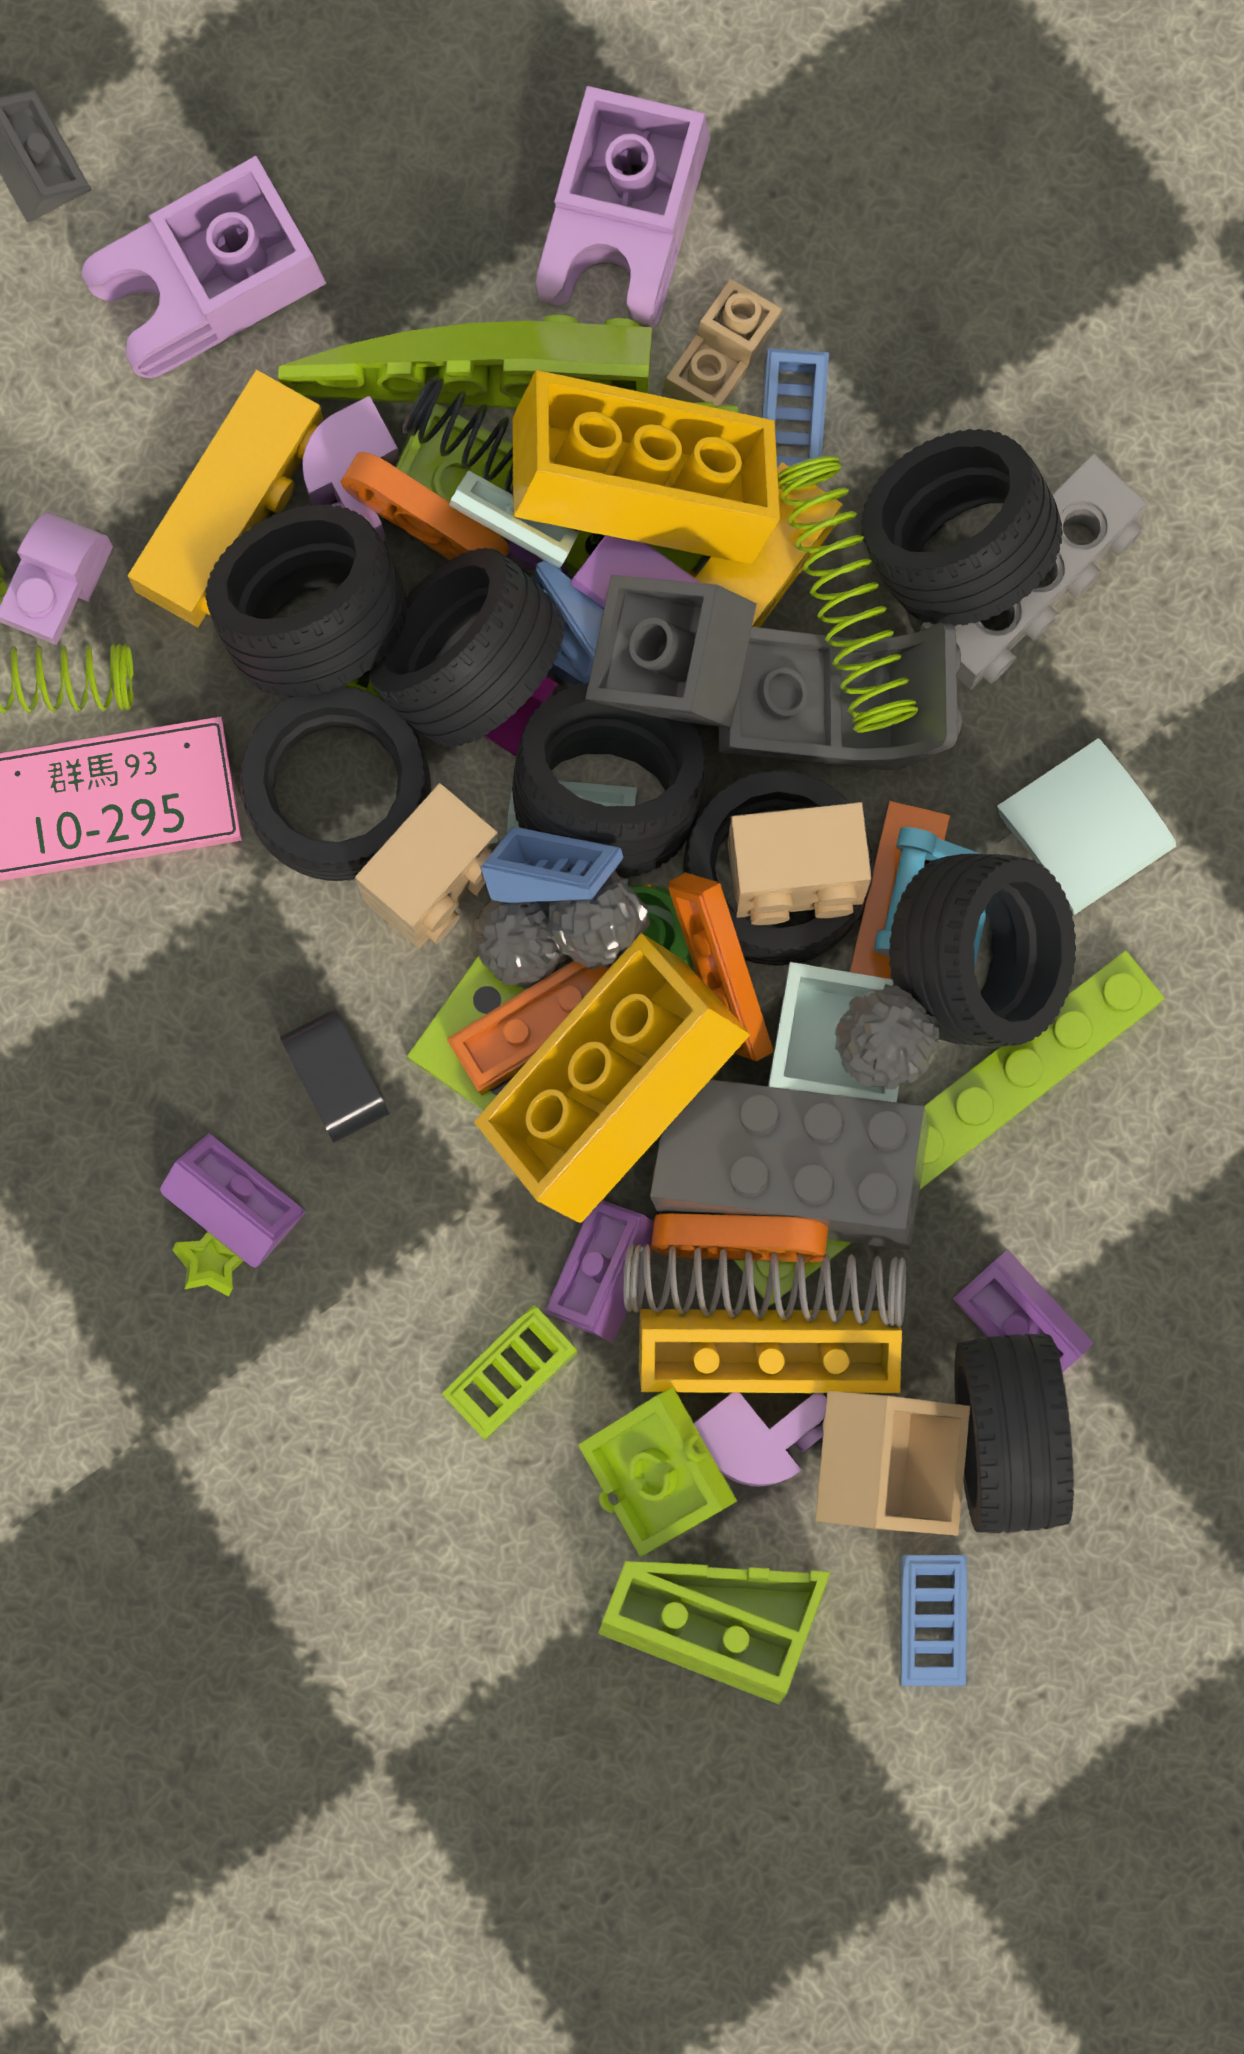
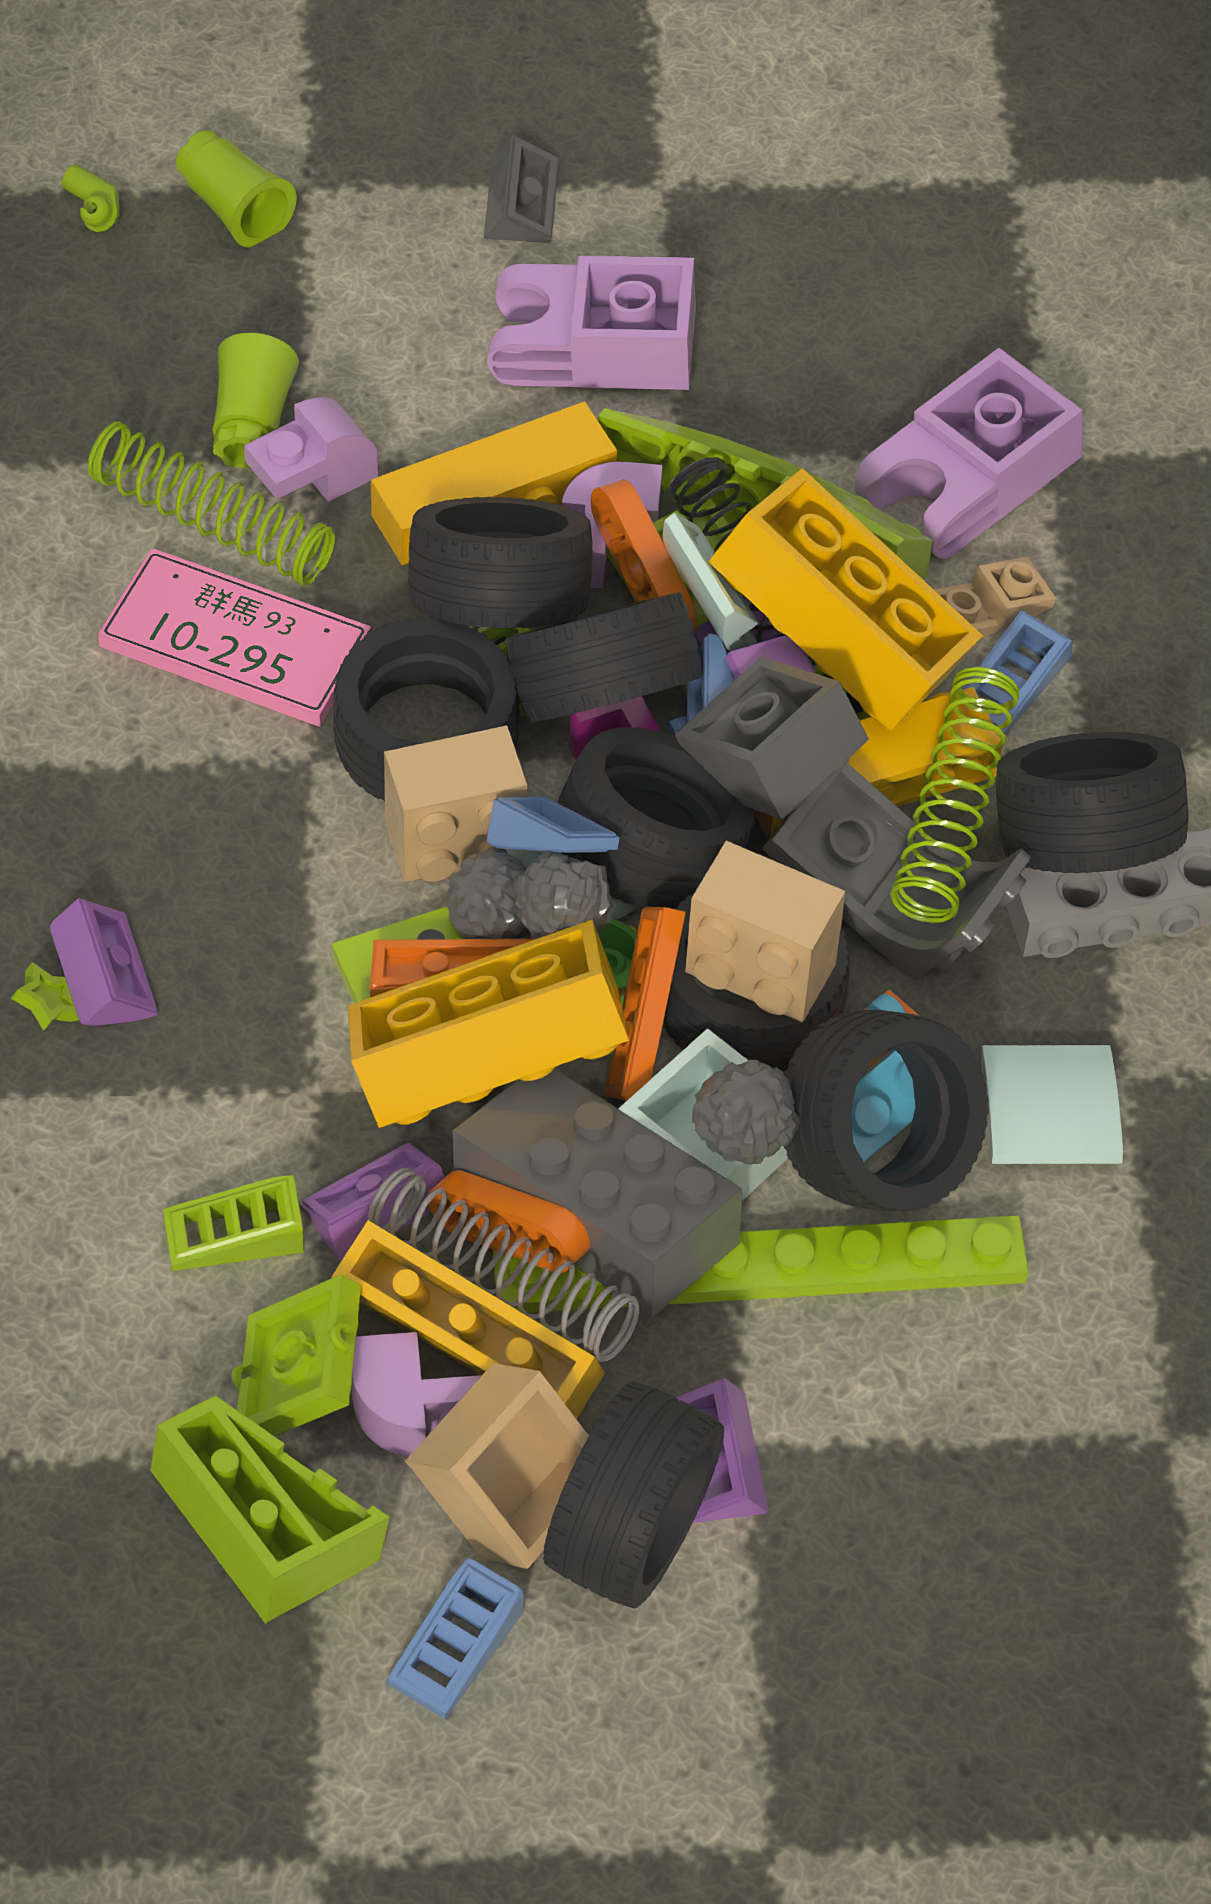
camera: 30 degrees right, 25 degrees down
(334, 1075) = (259, 921): black beam -> none

